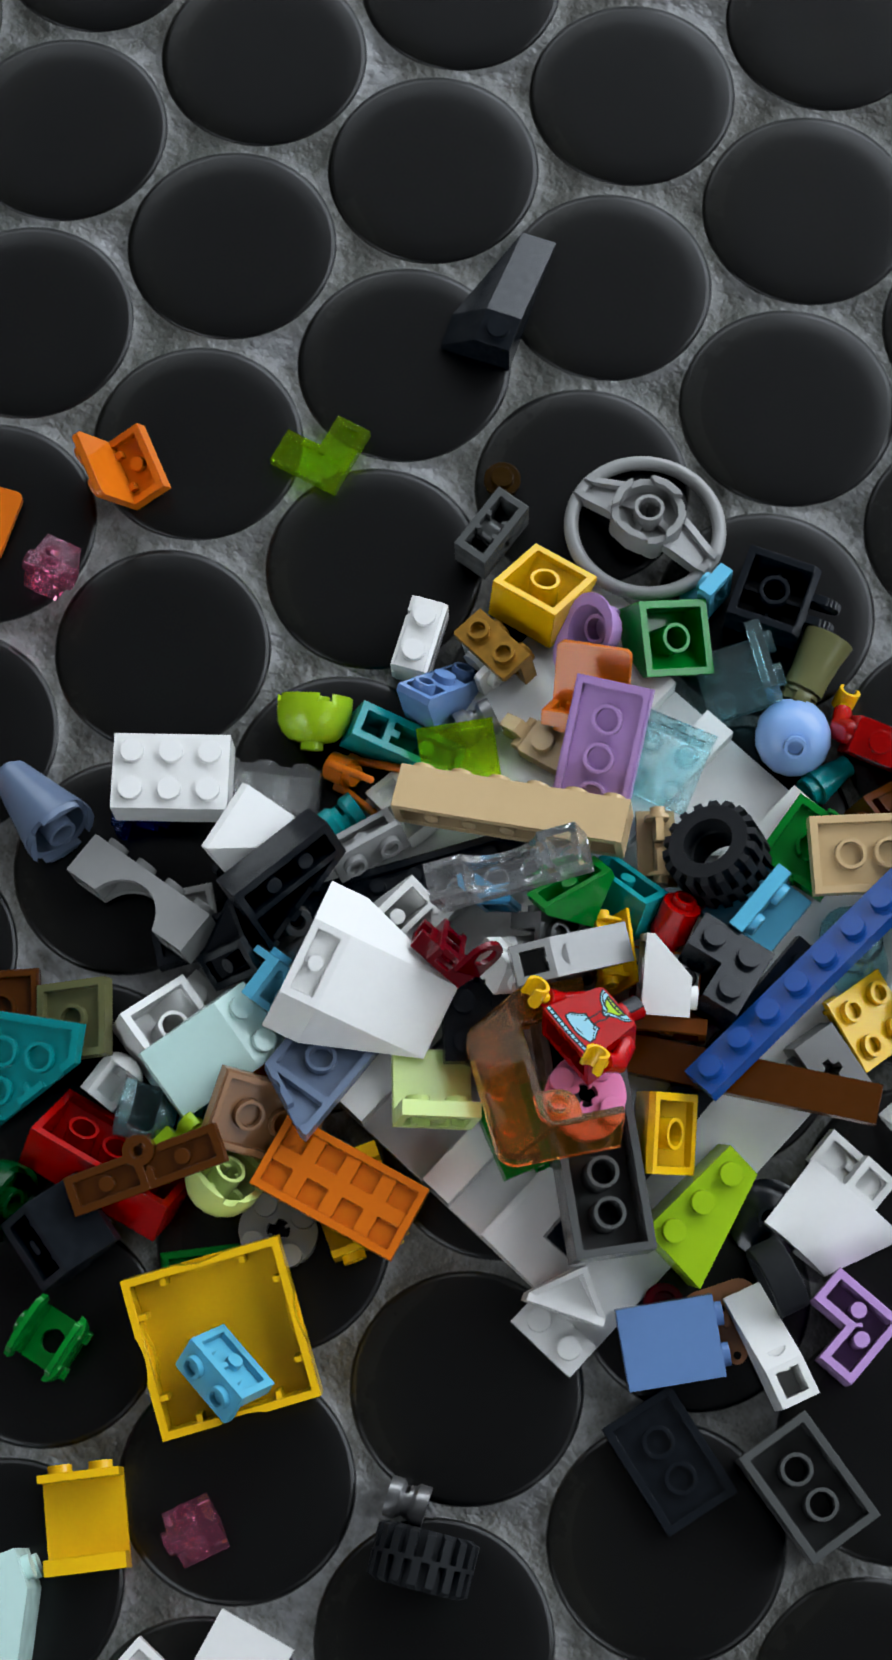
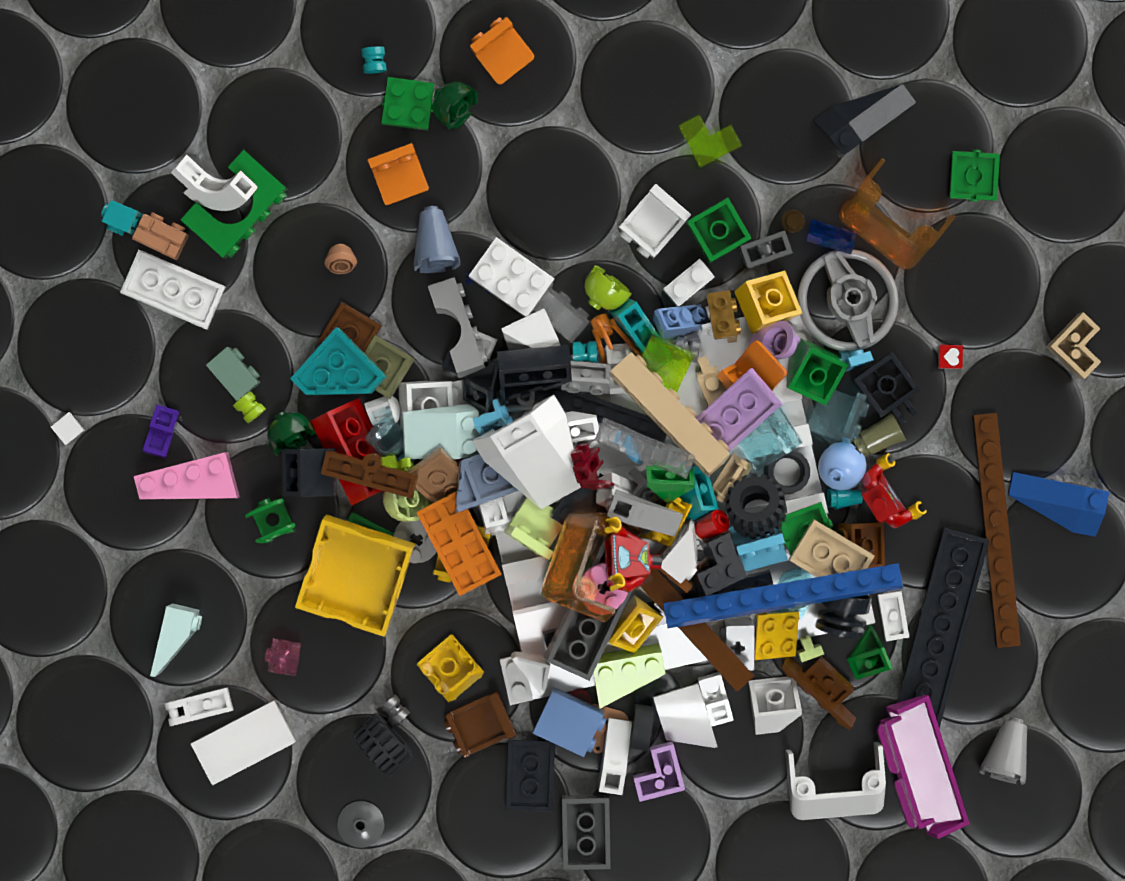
camera: 30 degrees right, 15 degrees up
(51, 567) = (523, 112): clear pink brick -> none
(85, 1519) = (235, 616): yellow panel -> none
(123, 468) = (596, 79): orange bracket -> none
(223, 1372) = (345, 594): medium azure bracket -> none
(320, 595) = (653, 222): none -> white panel
(364, 1115) = (494, 516): none -> white bracket
(411, 547) = (718, 230): none -> green brick
(449, 1382) = (450, 668): none -> yellow slope
(546, 1435) = (479, 724): none -> reddish brown panel
(576, 462) = (831, 236): none -> clear blue plate
(627, 412) = (881, 231): none -> clear orange windscreen
(694, 278) = (974, 176): none -> green plate
(738, 768) = (804, 472): none -> black tyre
(830, 514) = (950, 356): none -> red tile

